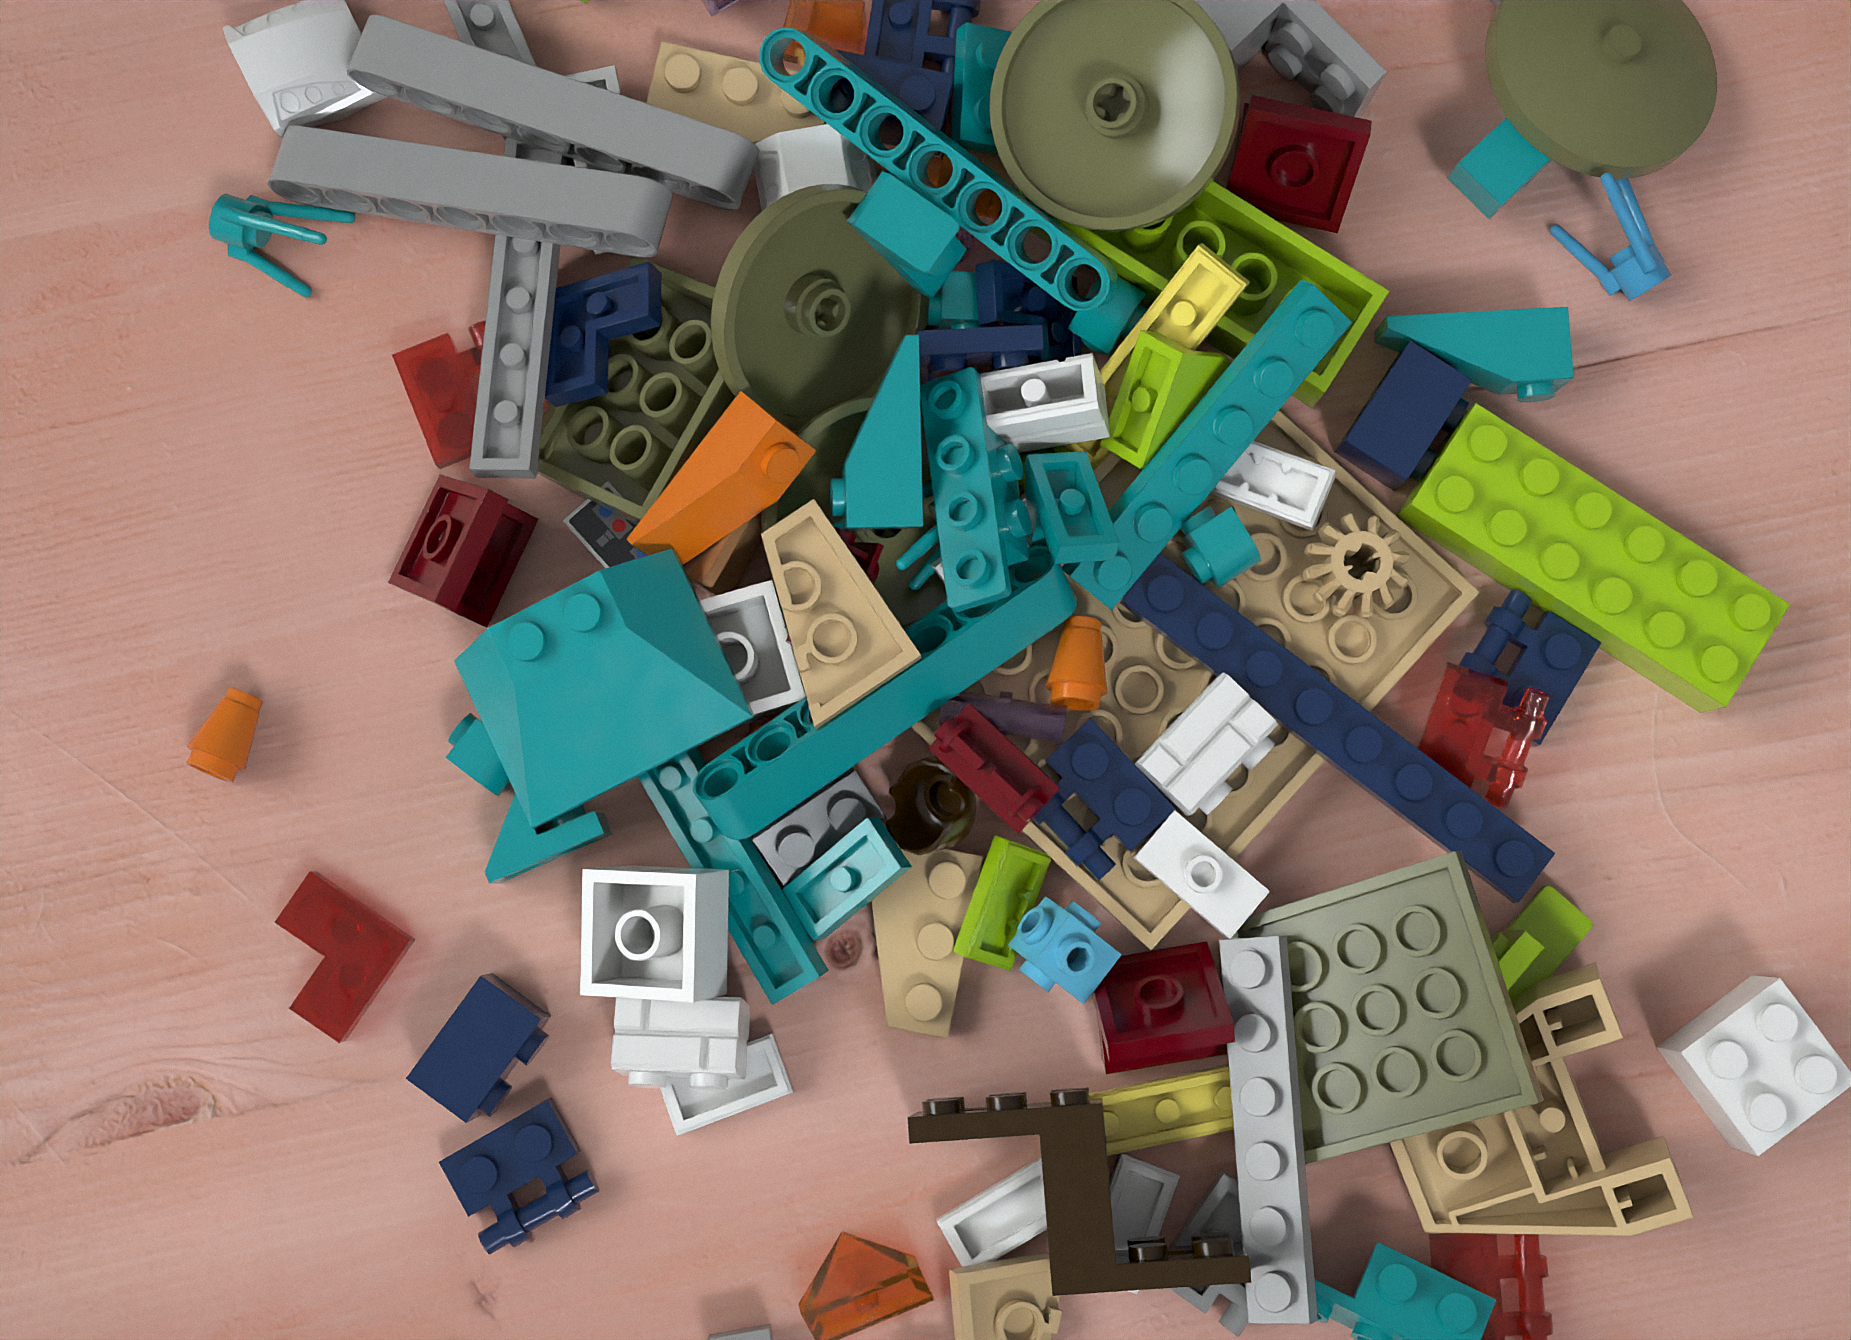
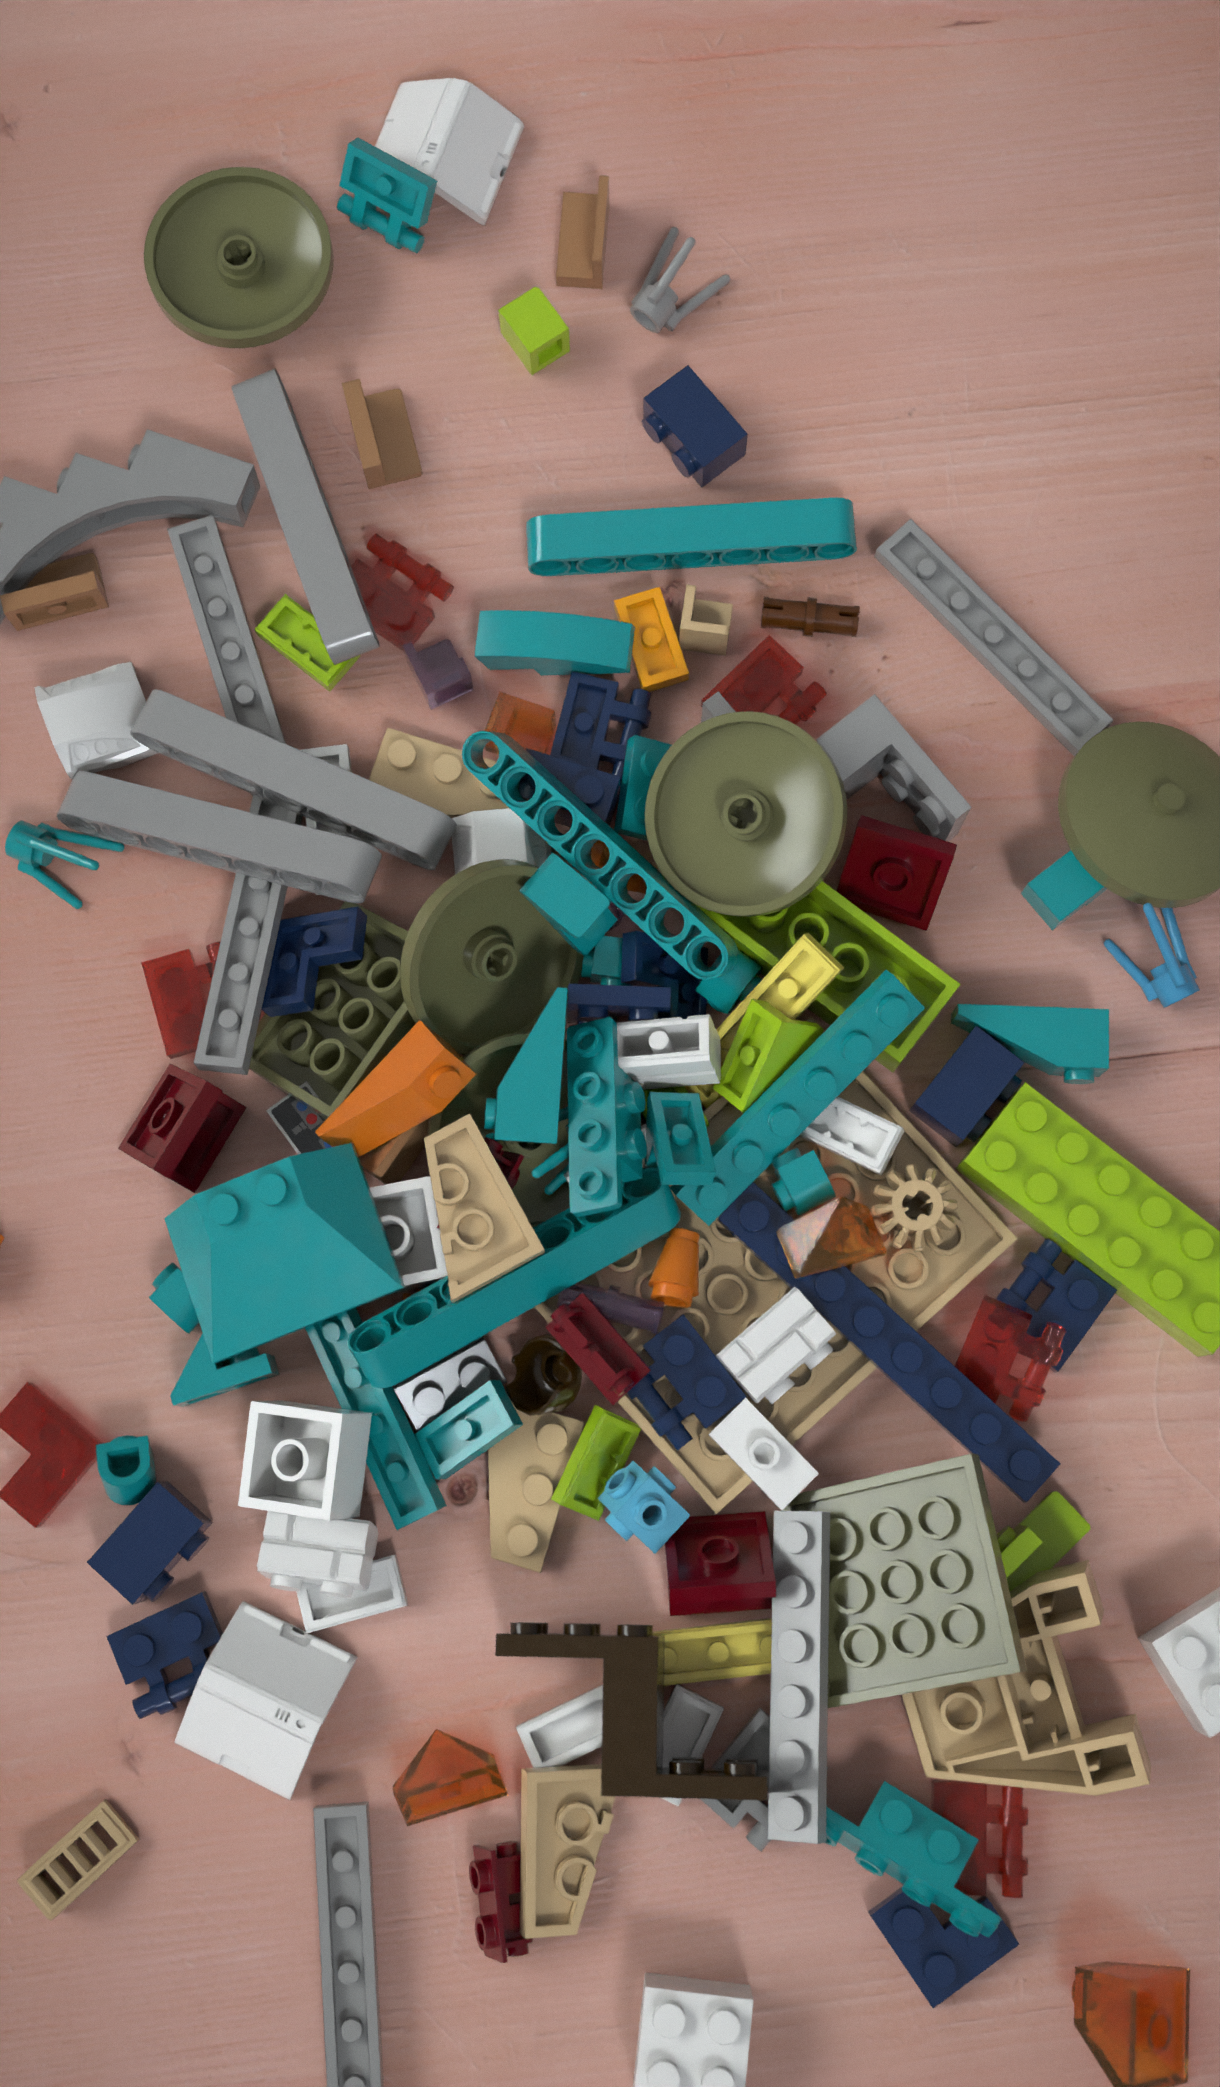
camera: 10 degrees right, 5 degrees down
(441, 963) = (126, 1468): none -> teal plate
(635, 1216) = (263, 1699): none -> white piece
(1260, 611) = (831, 1238): none -> clear orange slope

